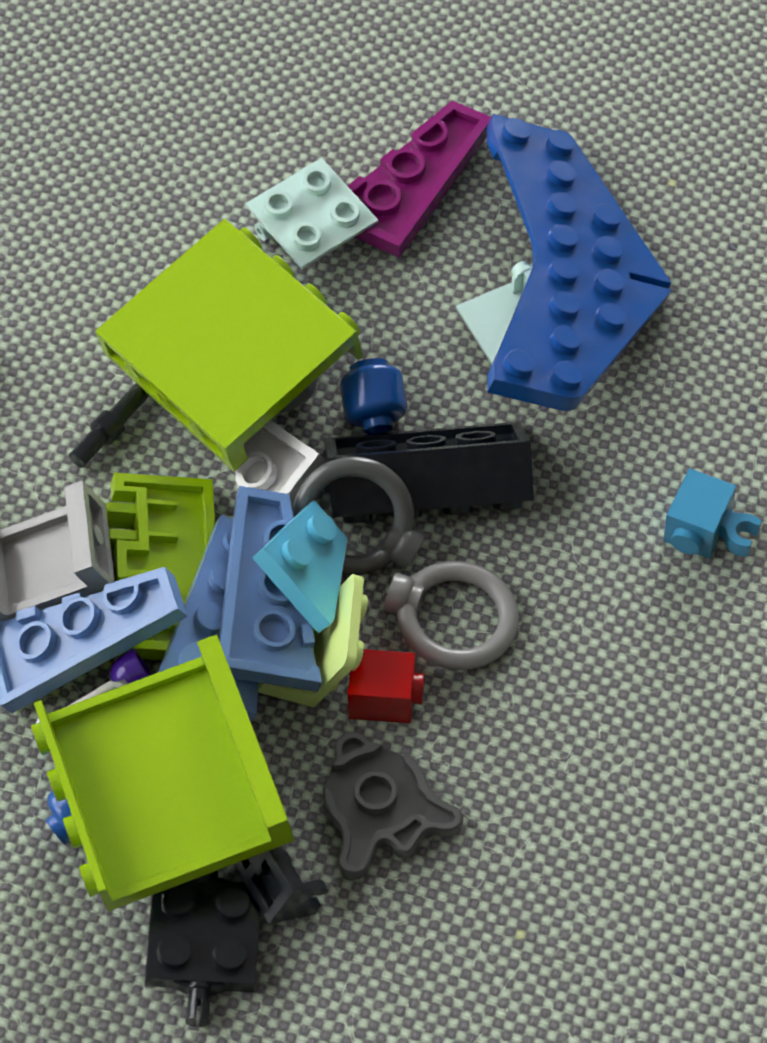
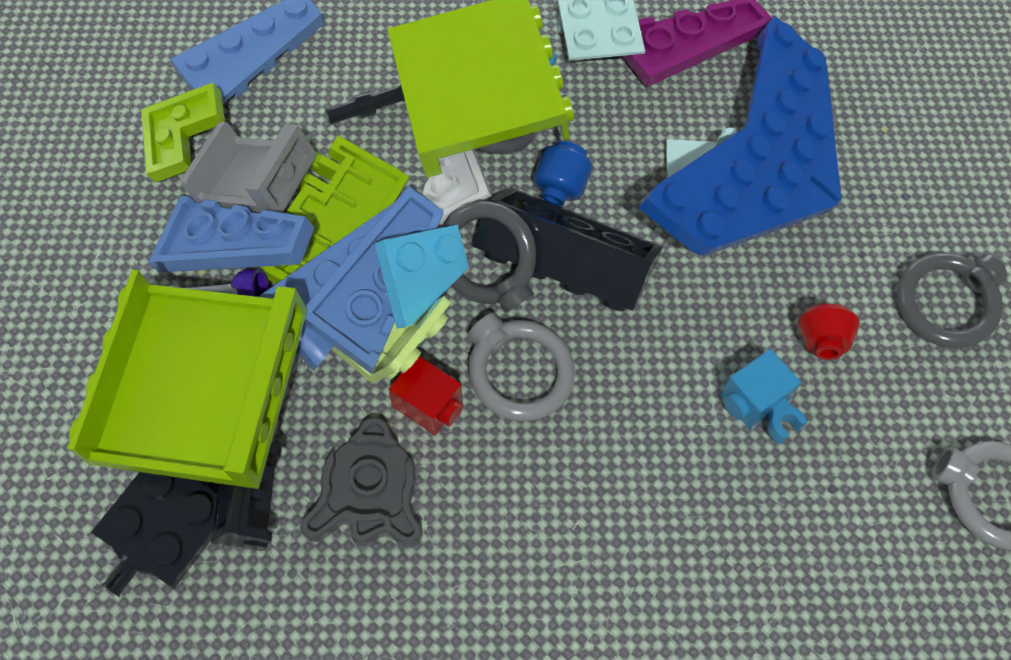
camera: 25 degrees right, 5 degrees up
(732, 423) = (828, 330): none -> red cone

